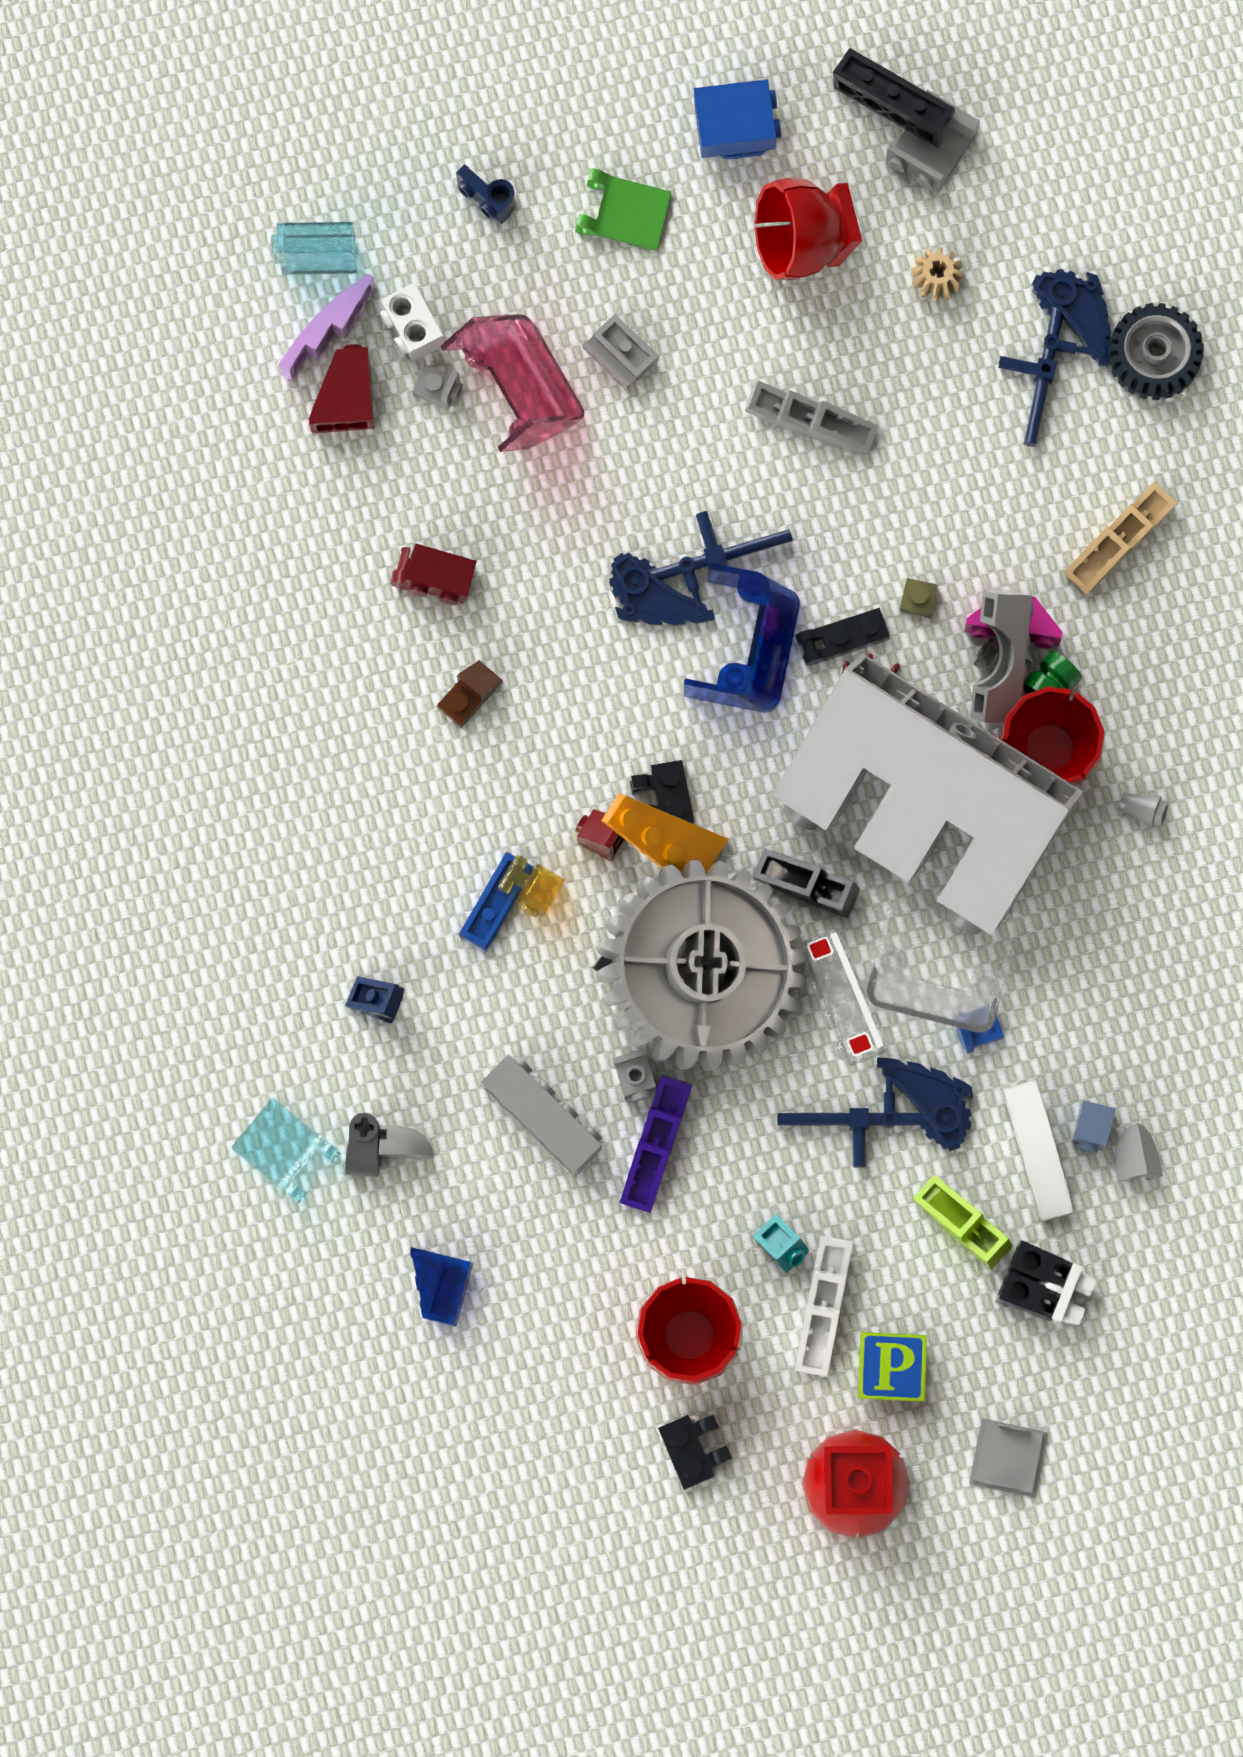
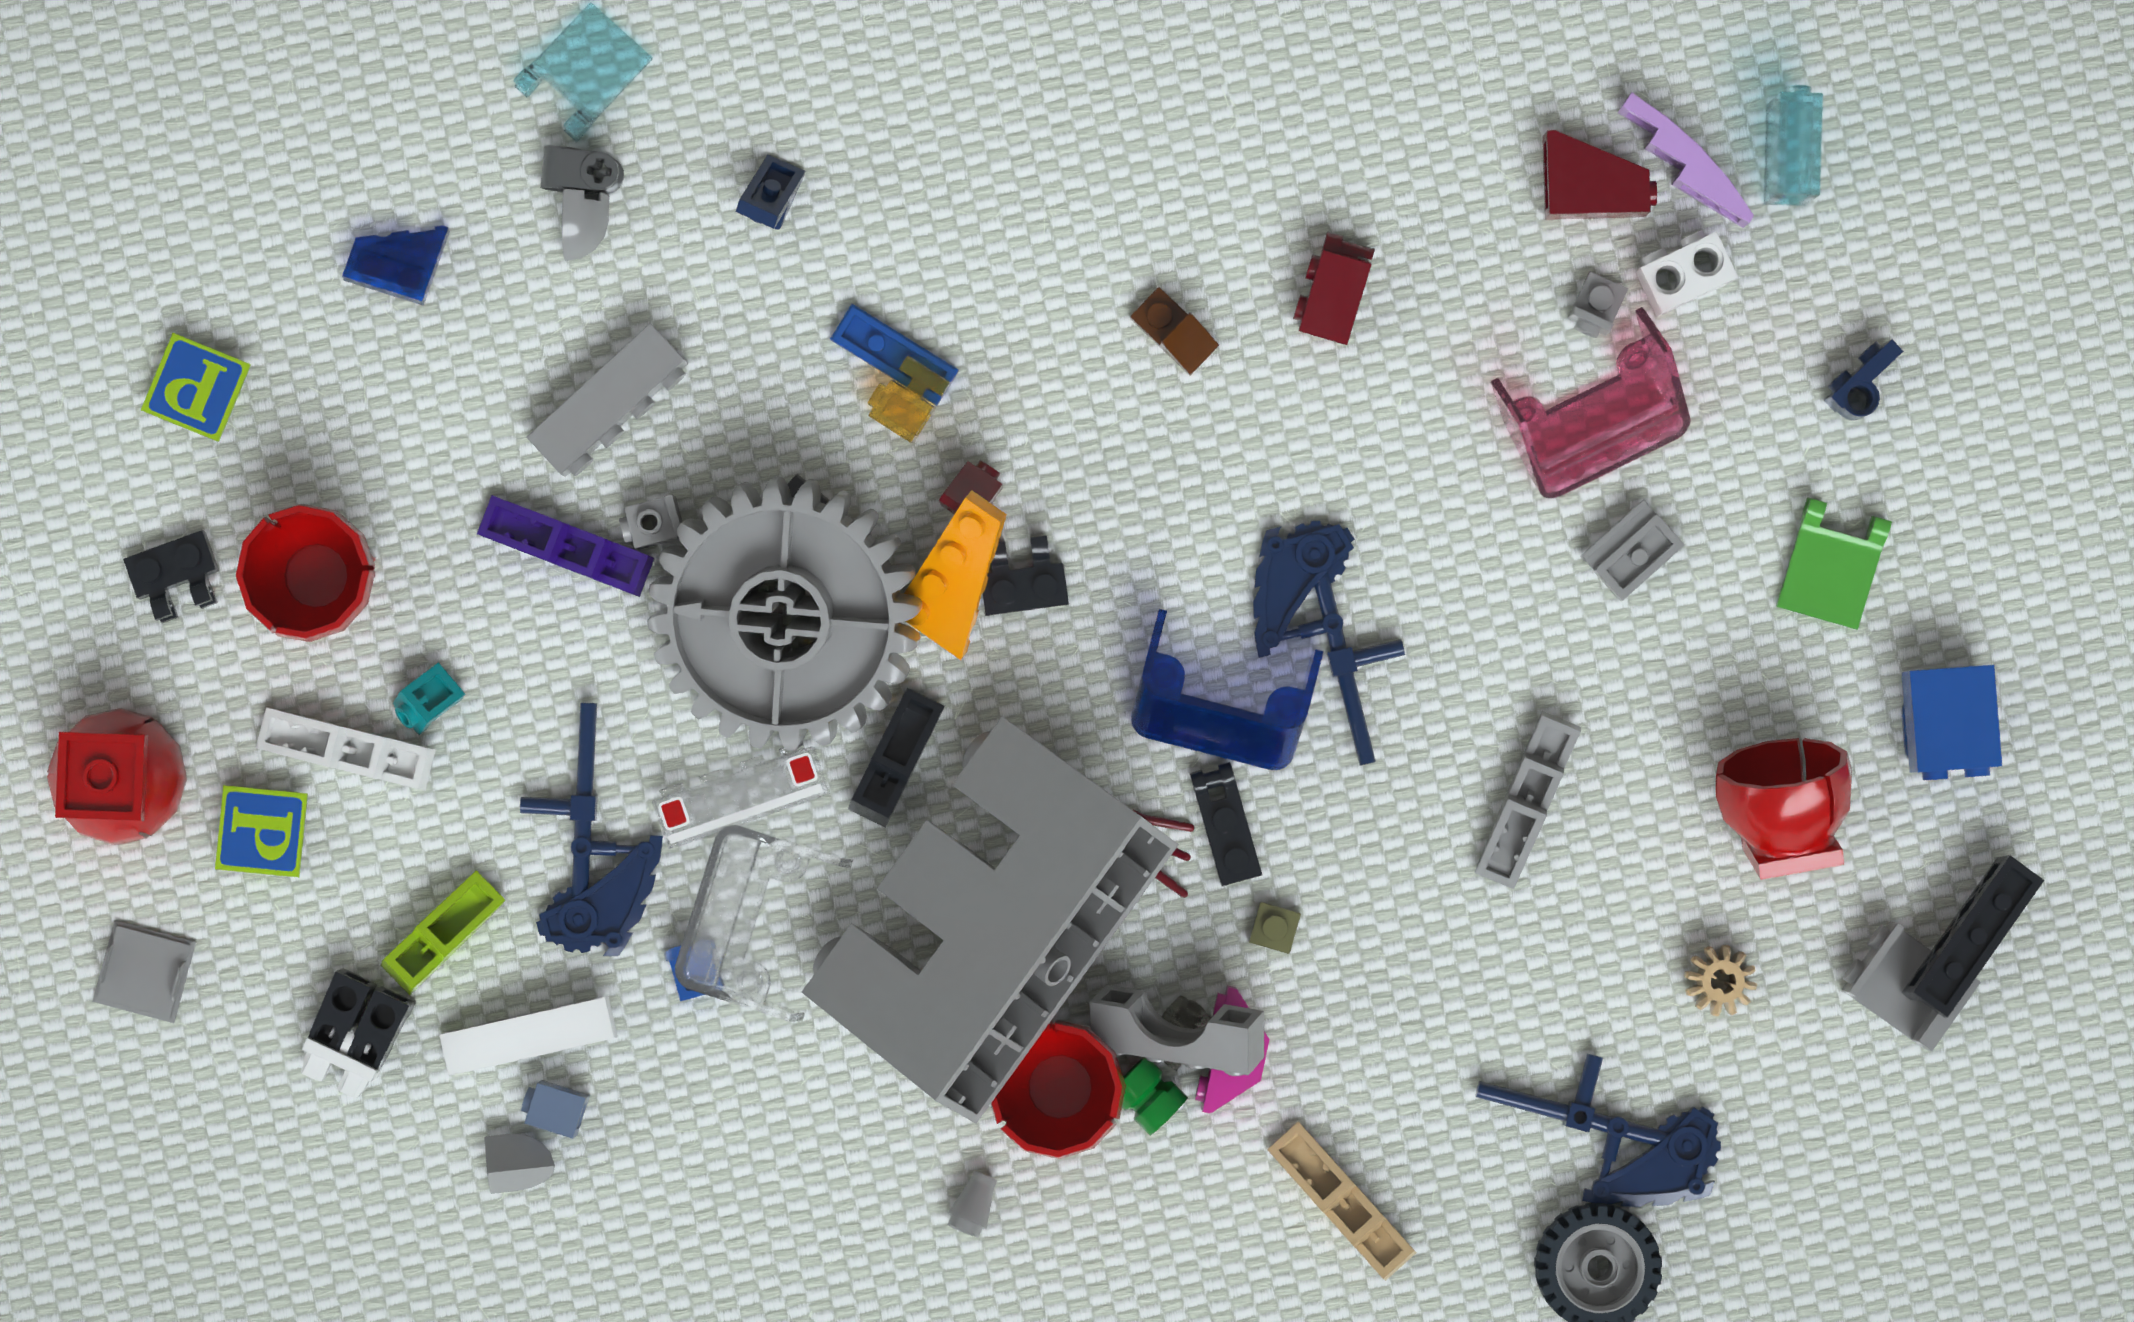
camera: 85 degrees right, 10 degrees up
(545, 1437) = (195, 387): none -> piece

